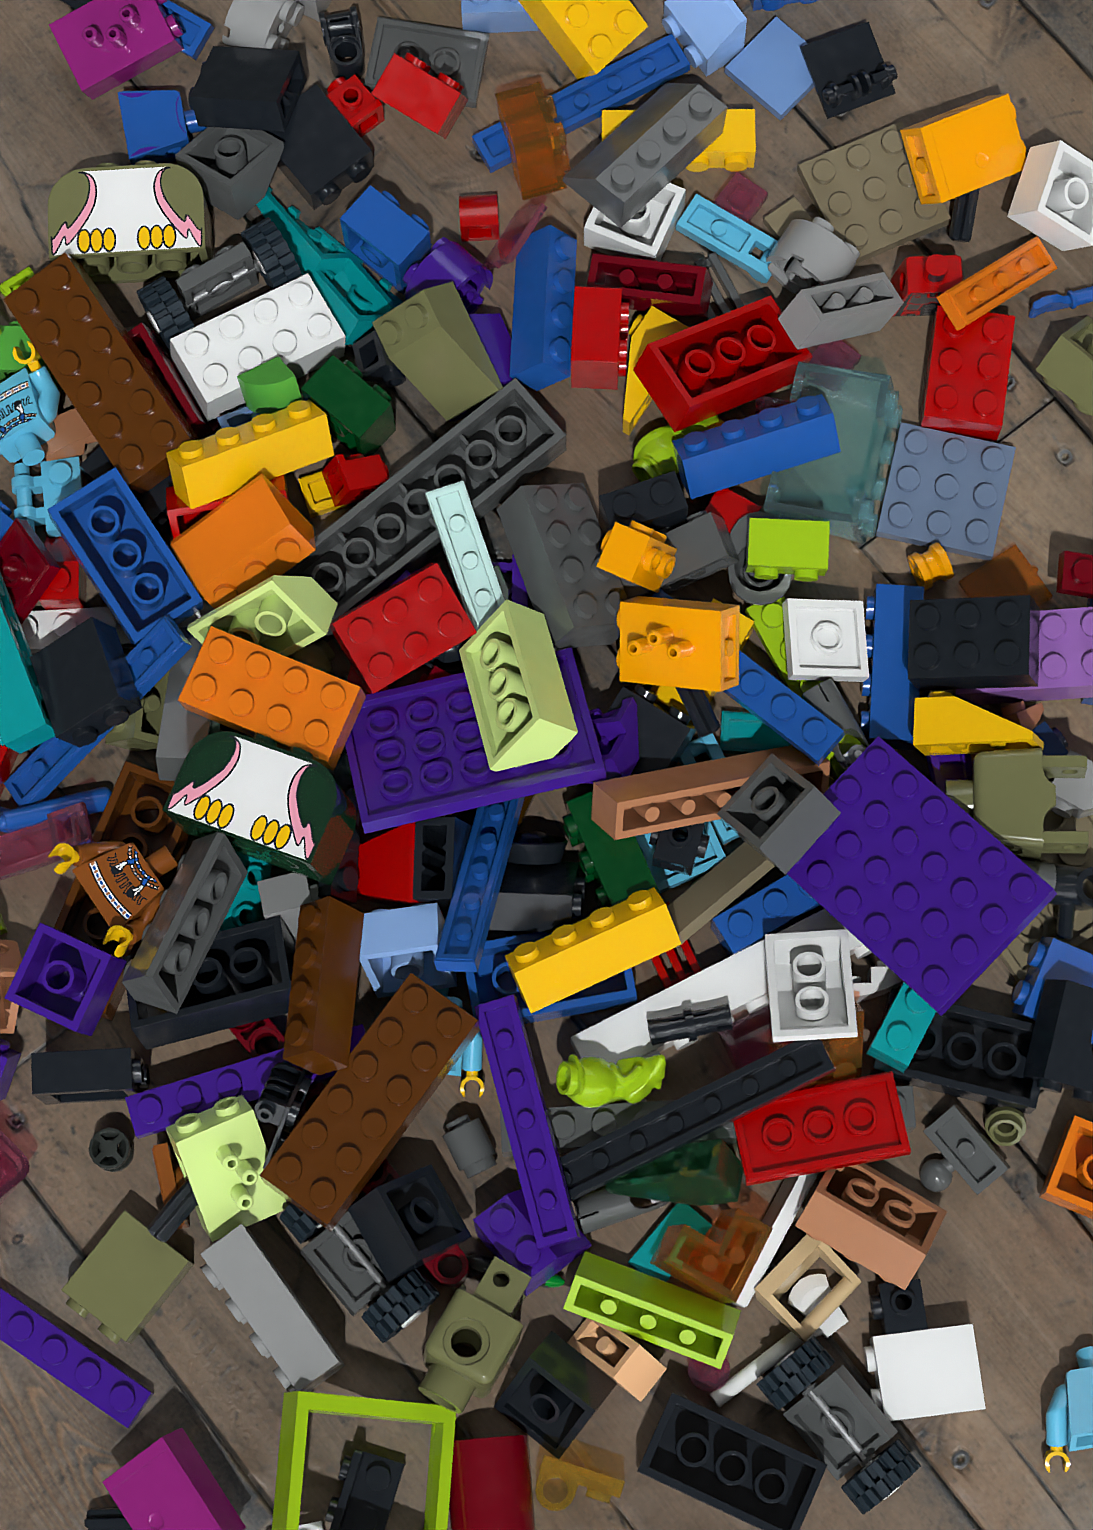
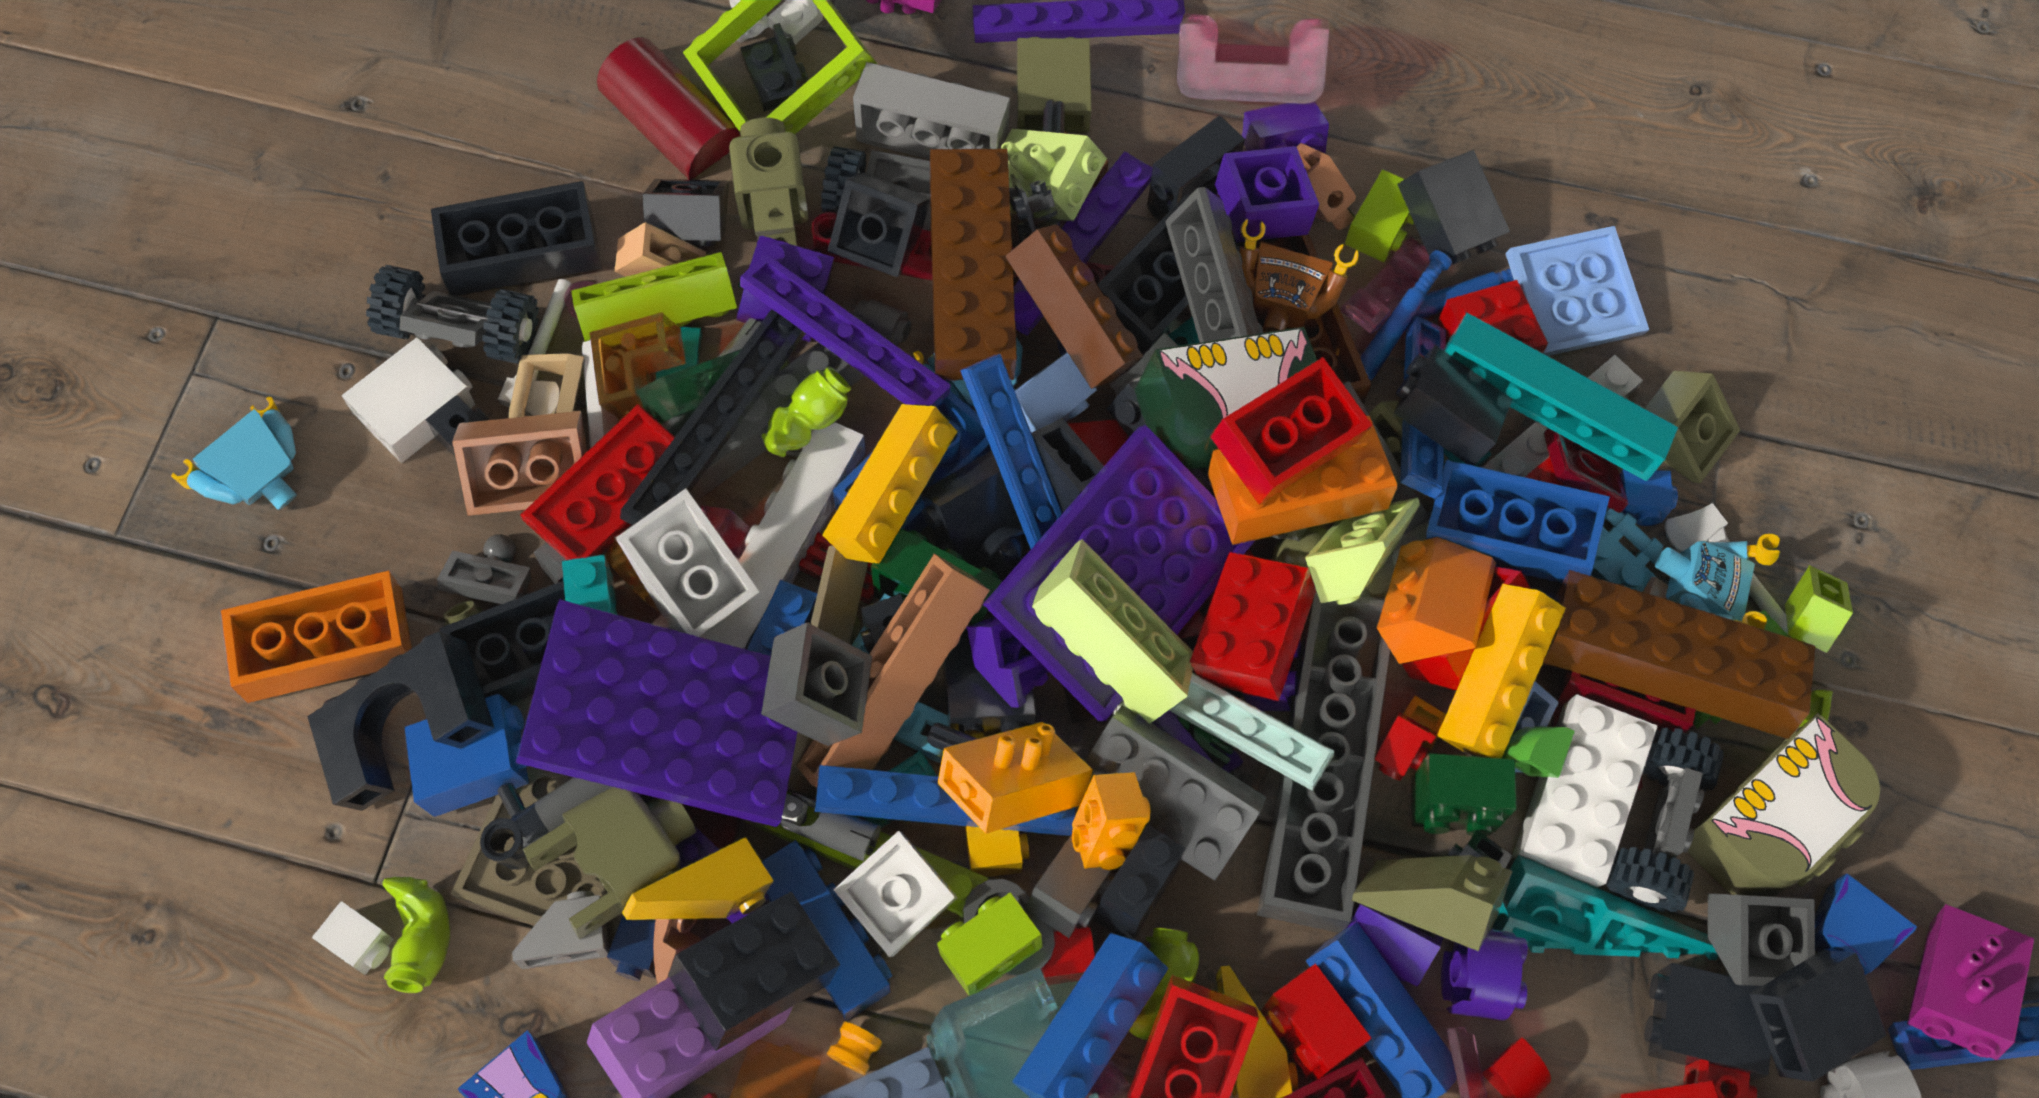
camera: 135 degrees right, 10 degrees down
(105, 1144) = (1141, 143): pearl dark grey wheel -> none
(268, 707) = (1290, 430): none -> red brick
(385, 236) = (1575, 973): blue brick -> none
(598, 1485) = (631, 168): clear yellow plate -> none
(689, 1024) = (774, 500): black pin -> none

